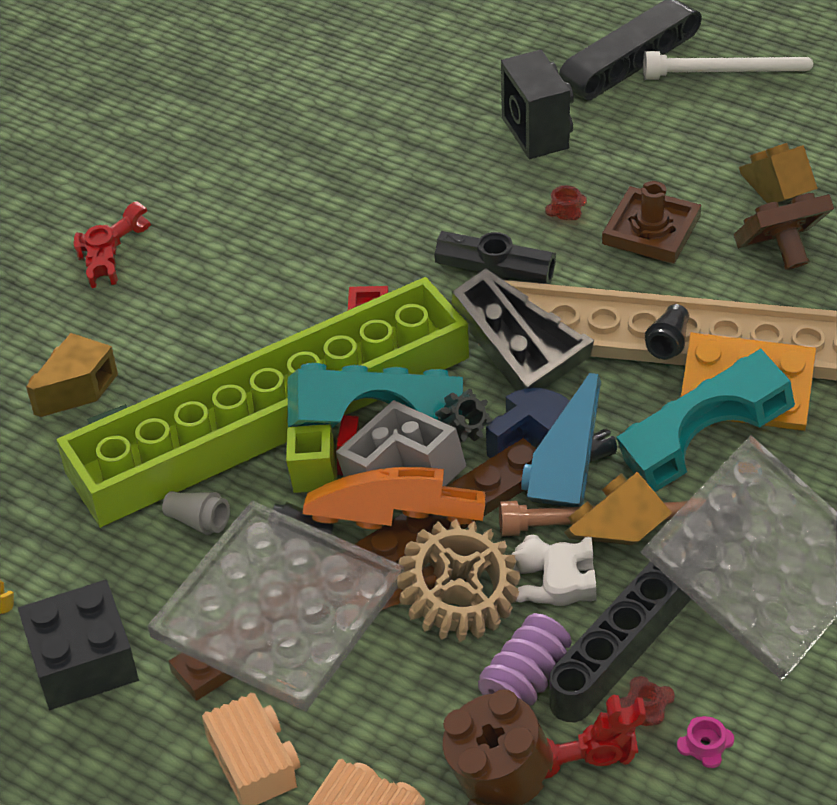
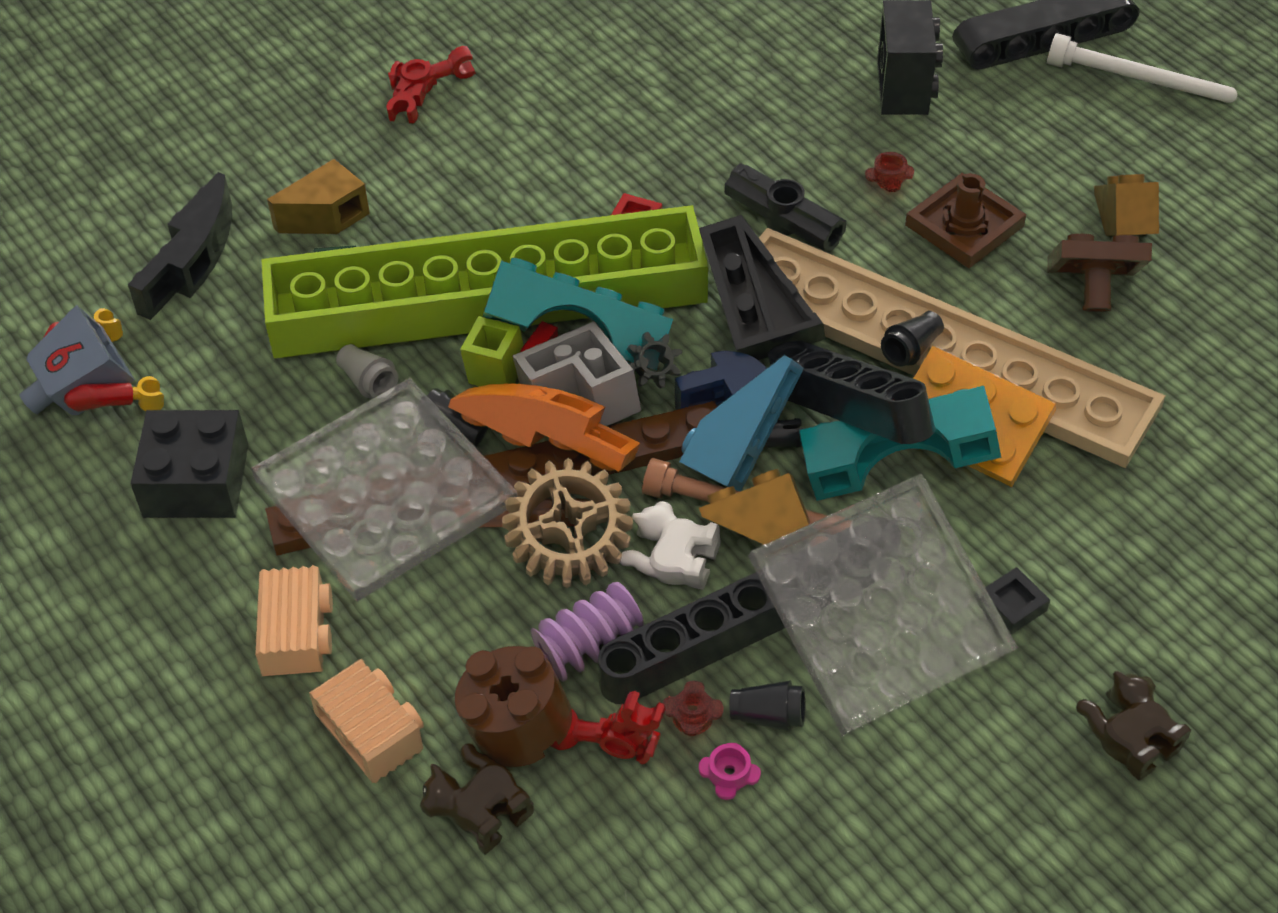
camera: 20 degrees right, 5 degrees up
(659, 387) = (859, 393): none -> black beam
(711, 675) = (770, 705): none -> black cone

